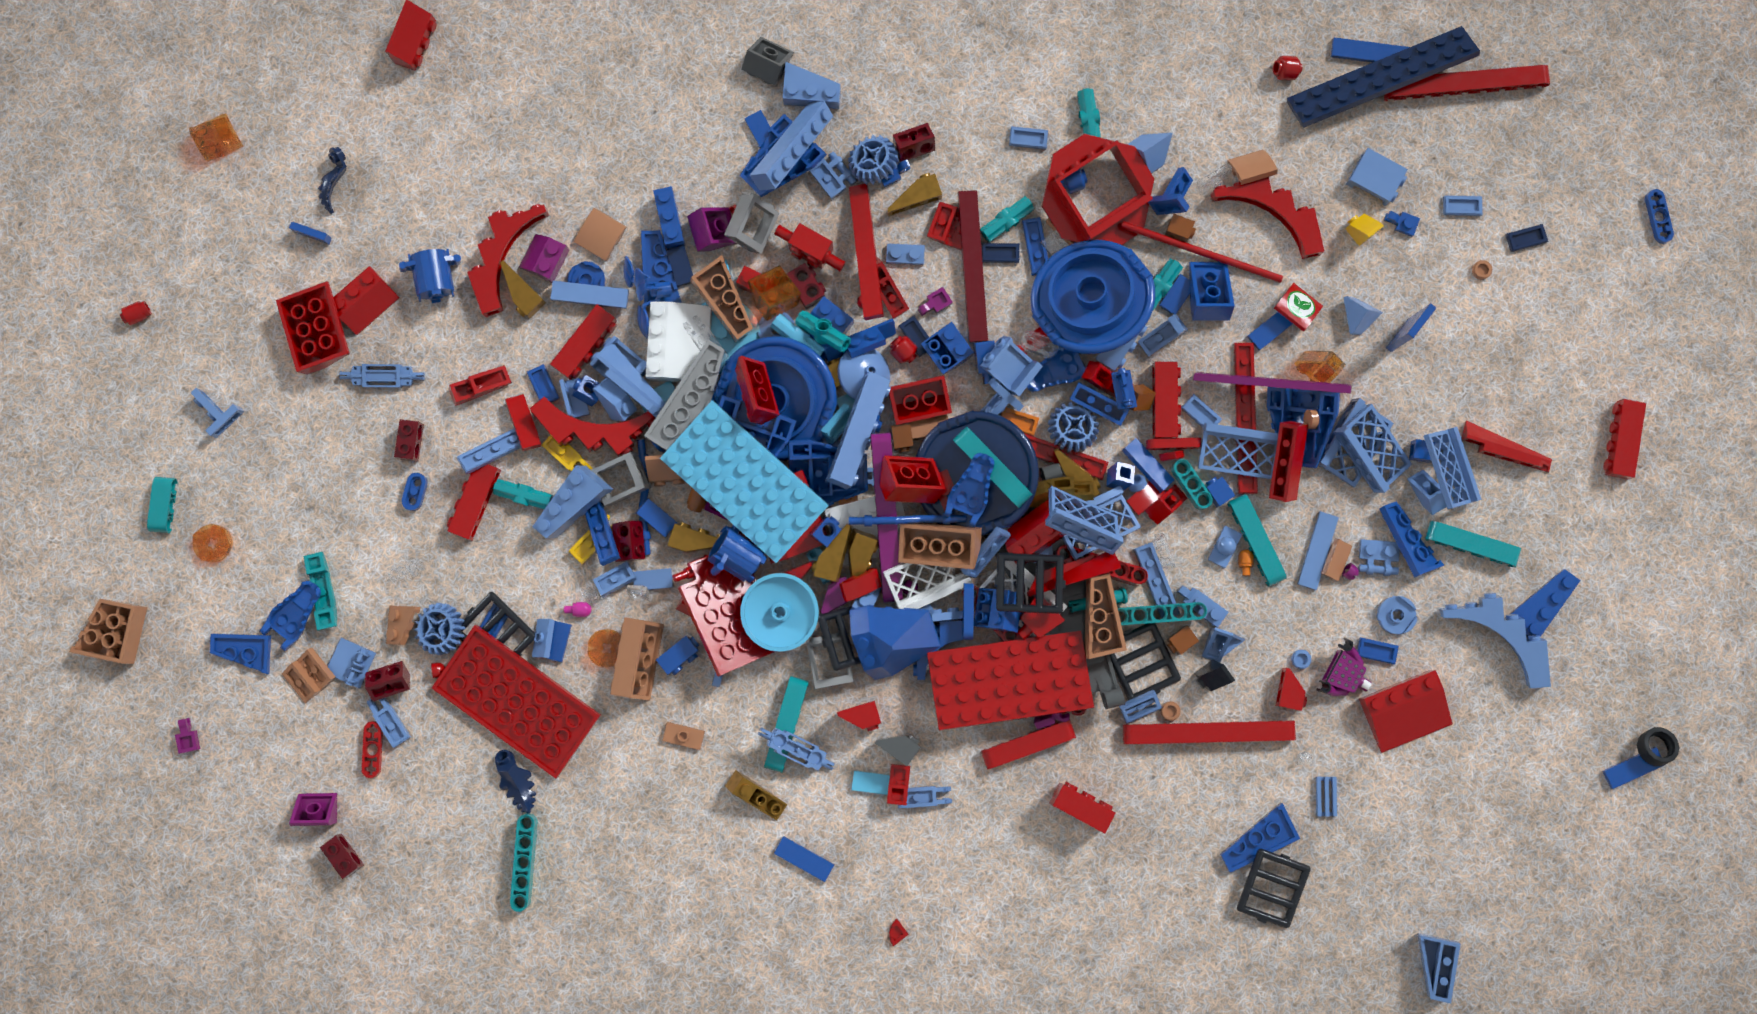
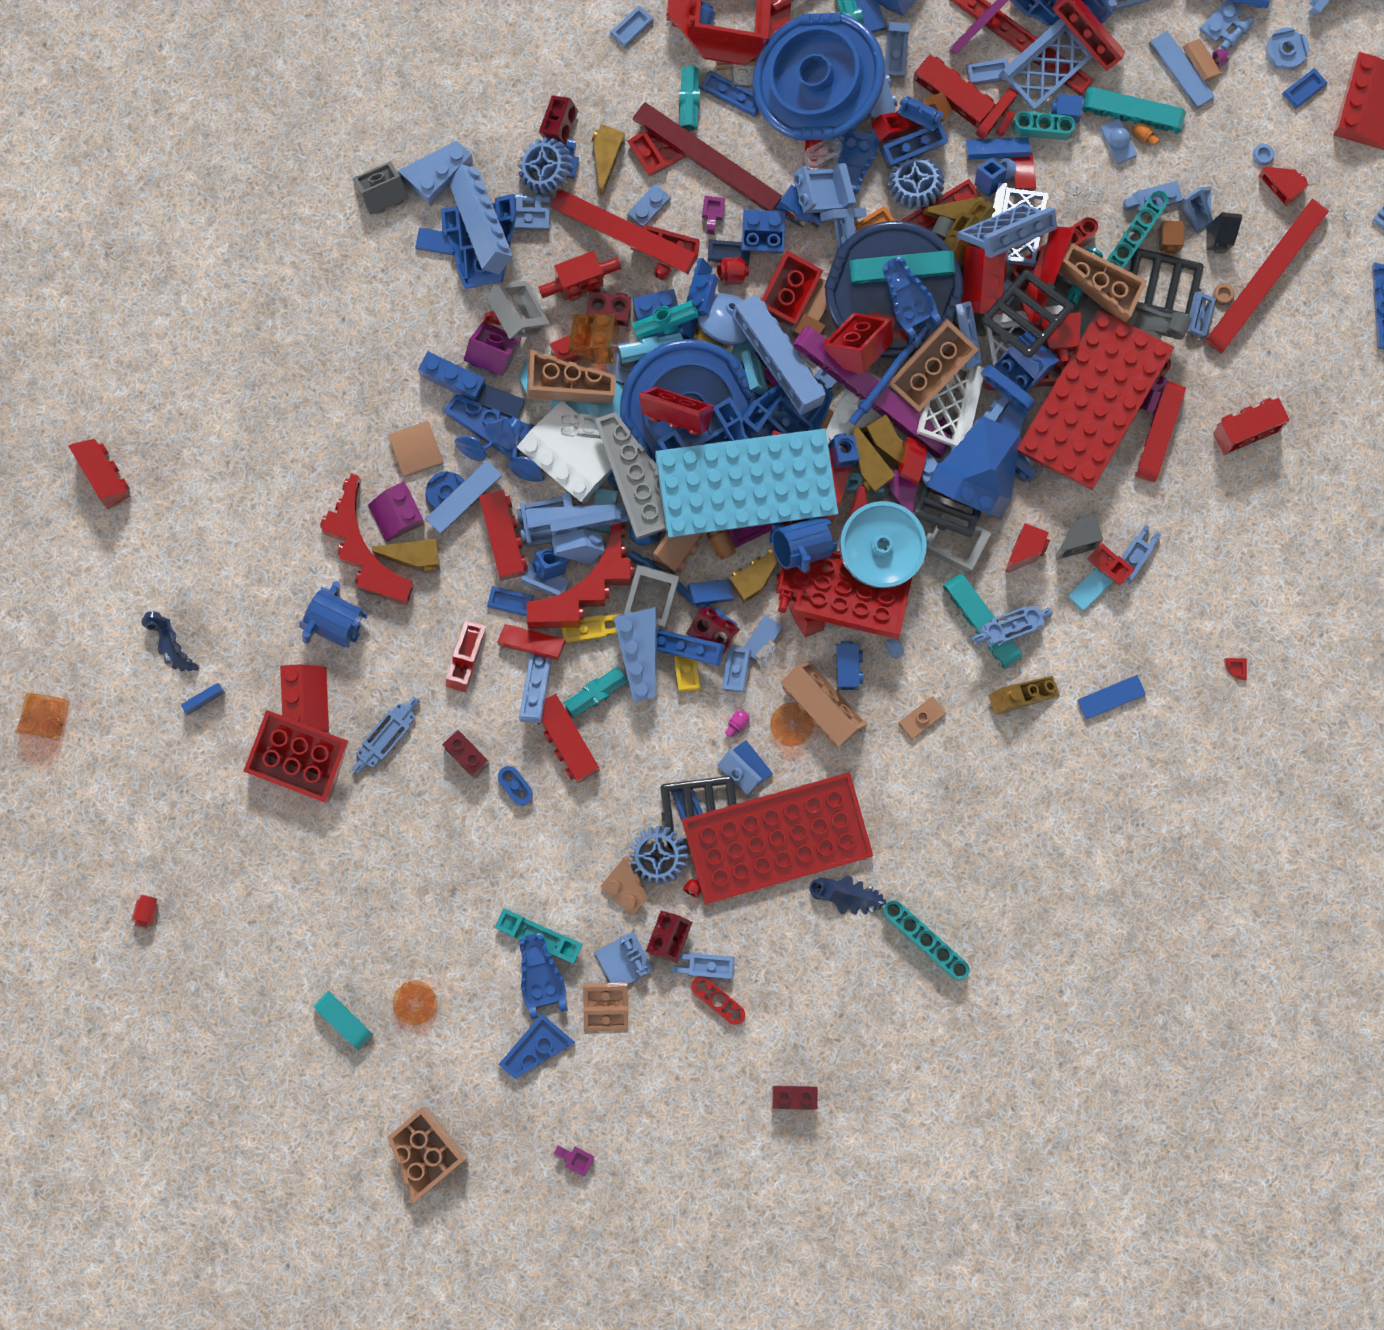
camera: 55 degrees left, 5 degrees down
(222, 419) = (298, 909): medium blue bracket -> none
(314, 809) = (732, 1090): magenta slope -> none
(1000, 252) = (714, 125): dark blue tile -> none
(1156, 579) = (1107, 219): medium blue tile -> none
(1166, 504) = (1045, 160): red slope -> none
(1345, 672) = (1303, 126): magenta torso -> none

